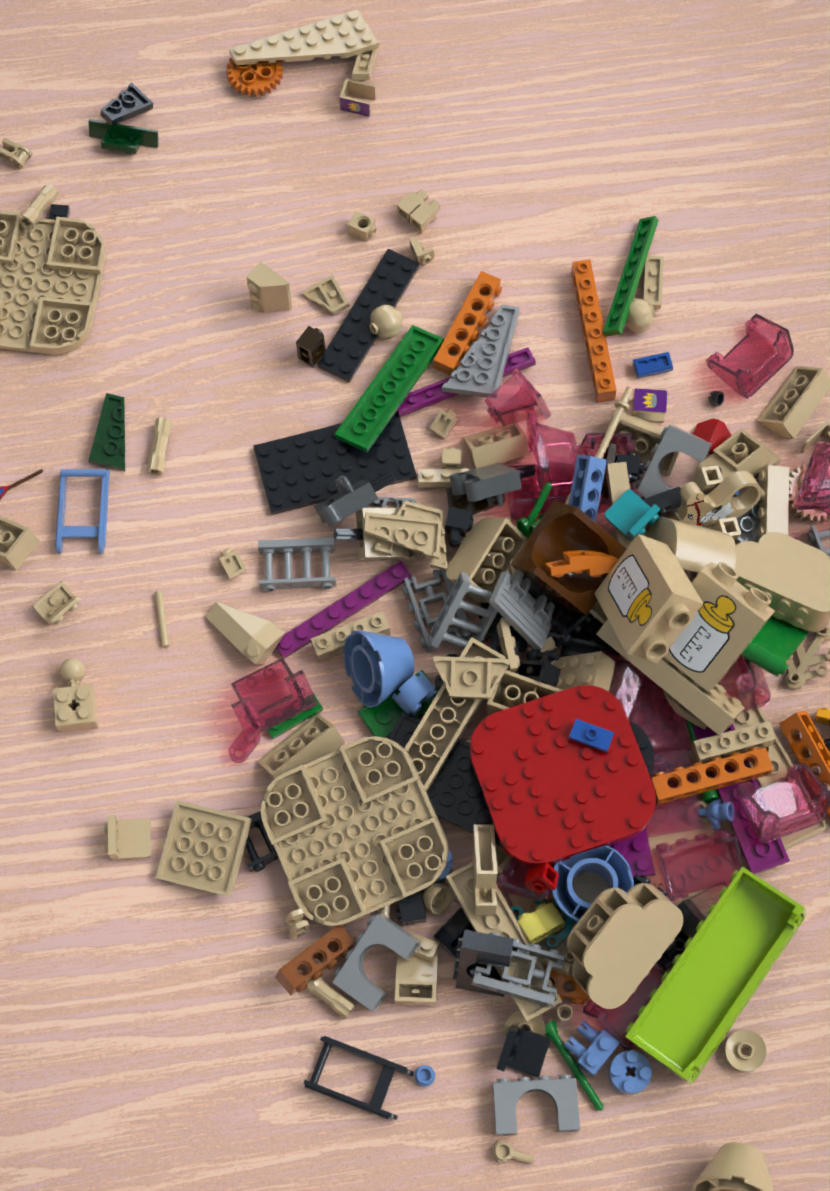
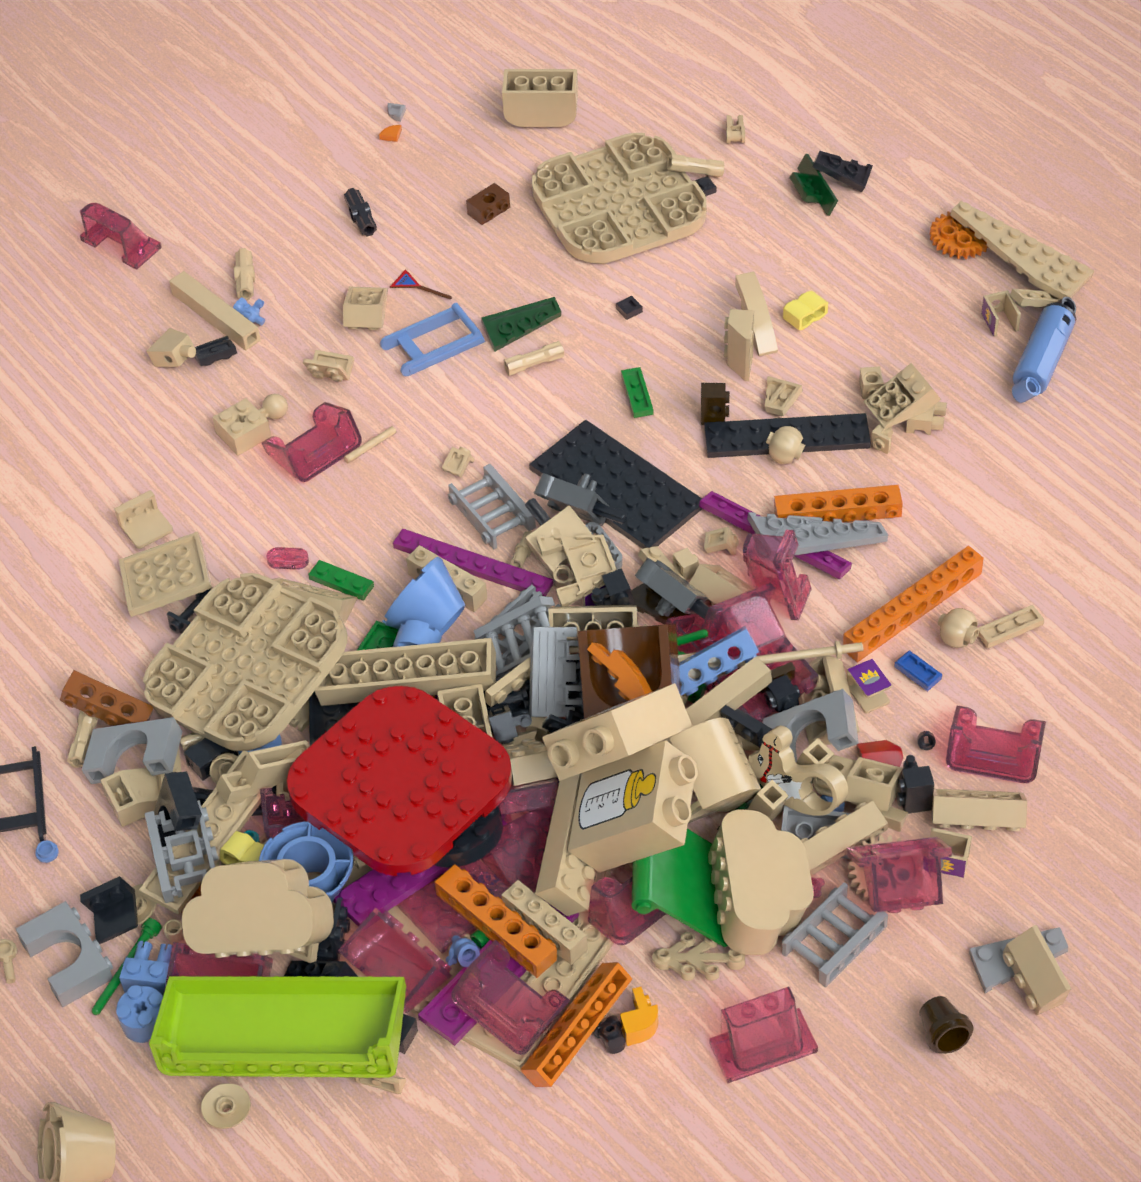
camera: 60 degrees right, 20 degrees down
(135, 659) = (319, 447): none -> clear pink windscreen
(153, 346) = (629, 307): none -> black tile
(230, 258) = (753, 299): none -> tan slope
(247, 632) = (395, 505): tan wedge -> none
(251, 392) = (637, 392): none -> green plate
(253, 224) = (805, 310): none -> light yellow brick
(271, 697) = (339, 546): clear pink windscreen -> none
(296, 924) = (133, 676): tan piece -> none
(356, 565) = (522, 551): none -> tan pin
(389, 388) = (717, 480): green plate -> none
(404, 216) = (902, 397): none -> tan slope
(409, 532) = (570, 550): tan wing -> none
(417, 92) = (1044, 349): none -> medium blue piece
(470, 676) = (450, 656): tan wing -> none
(537, 879) = (277, 811): red brick -> none
(591, 735) = (450, 772): blue plate -> none
(630, 276) = (988, 600): green plate -> none
(631, 514) = (715, 700): teal bracket -> none
(761, 428) = (915, 787): none -> black brick

